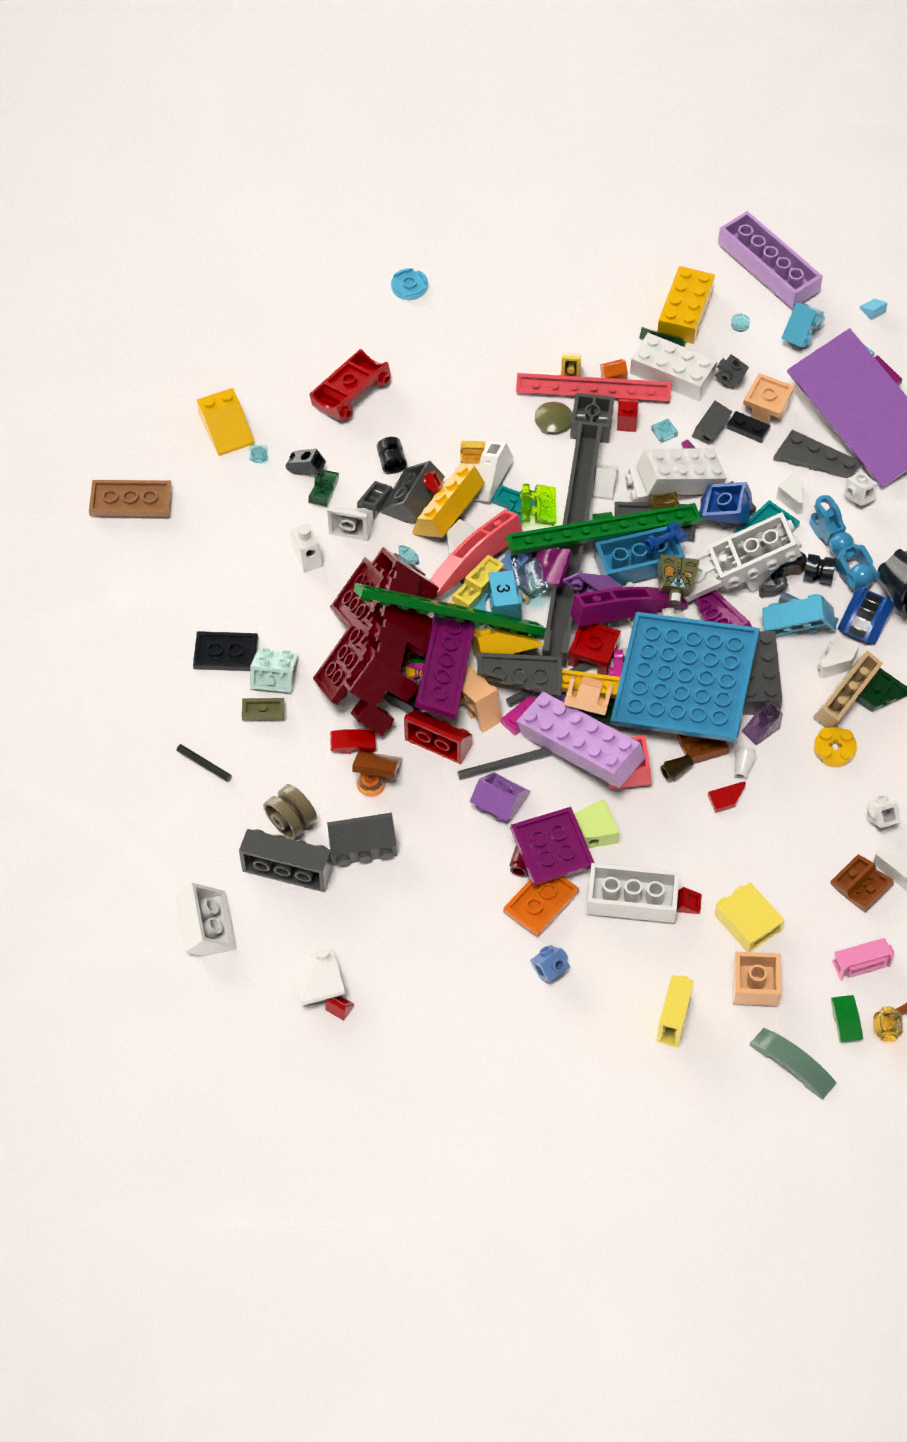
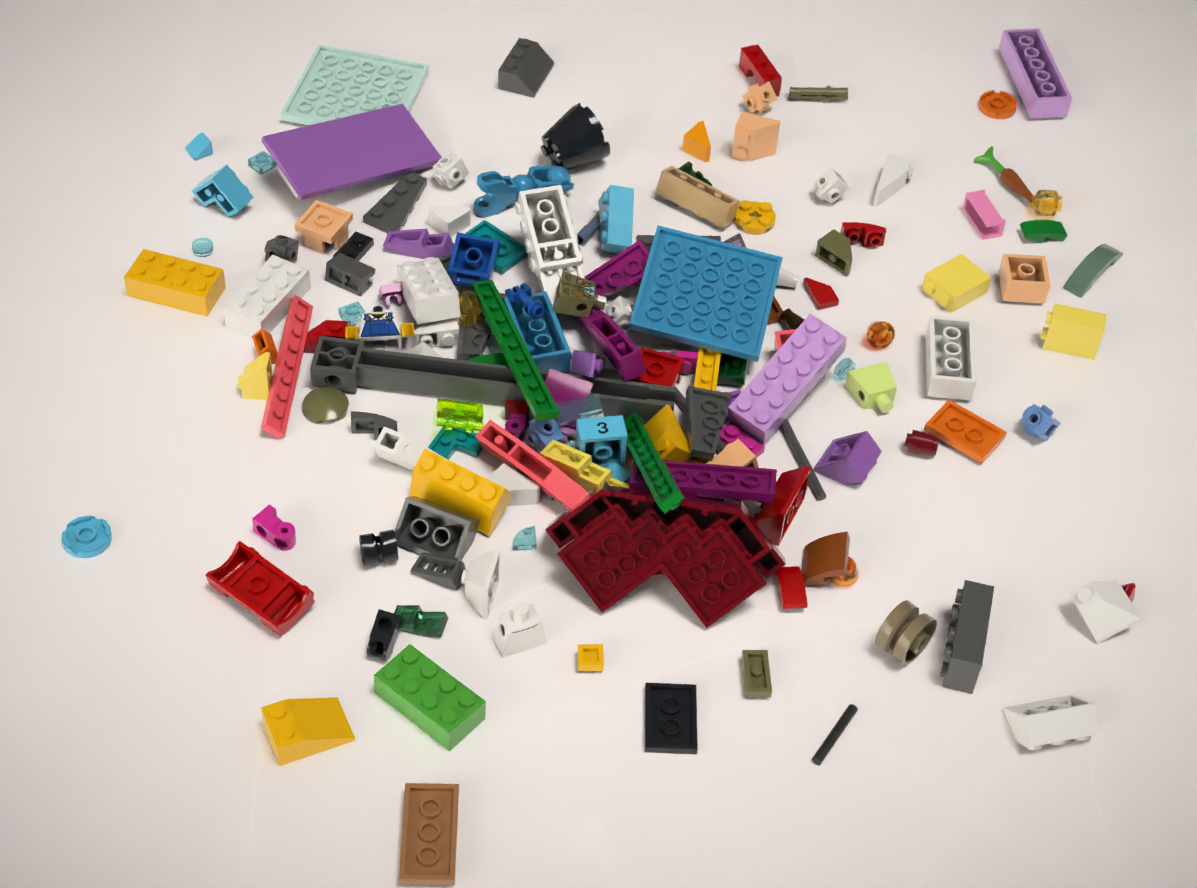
camera: 95 degrees left, 10 degrees down
(246, 492) = (429, 697): none -> bright green brick
(258, 457) = (362, 695): clear light blue plate -> none
(273, 670) = (697, 660): light aqua bracket -> none
(282, 596) = (590, 657): none -> yellow plate
(362, 839) = (927, 572): dark grey slope -> none
(413, 391) = (273, 529): none -> dark pink leg
(432, 481) = (438, 494): red plate -> none
(471, 451) = (375, 475): clear yellow piece -> none
(525, 448) = (370, 423): none -> dark grey slope
(552, 846) = (914, 409): magenta plate -> none
(588, 695) = (741, 368): light nougat panel -> none
(617, 804) = (842, 368): none -> clear light blue tile
(635, 440) = (380, 330): none -> torso
(666, 837) = (880, 334): none -> clear orange cone
(672, 338) = (216, 313): dark green piece -> none
(758, 470) = (419, 243): none -> medium lavender slope
(770, 259) = (121, 211): lavender brick -> none
(785, 812) = (835, 251): none -> olive slope
(815, 831) = (868, 234): none -> red slope
(839, 657) = (655, 204): white slope -> none
(862, 883) = (901, 211): dark orange slope -> none
(866, 615) = (597, 178): blue slope -> none

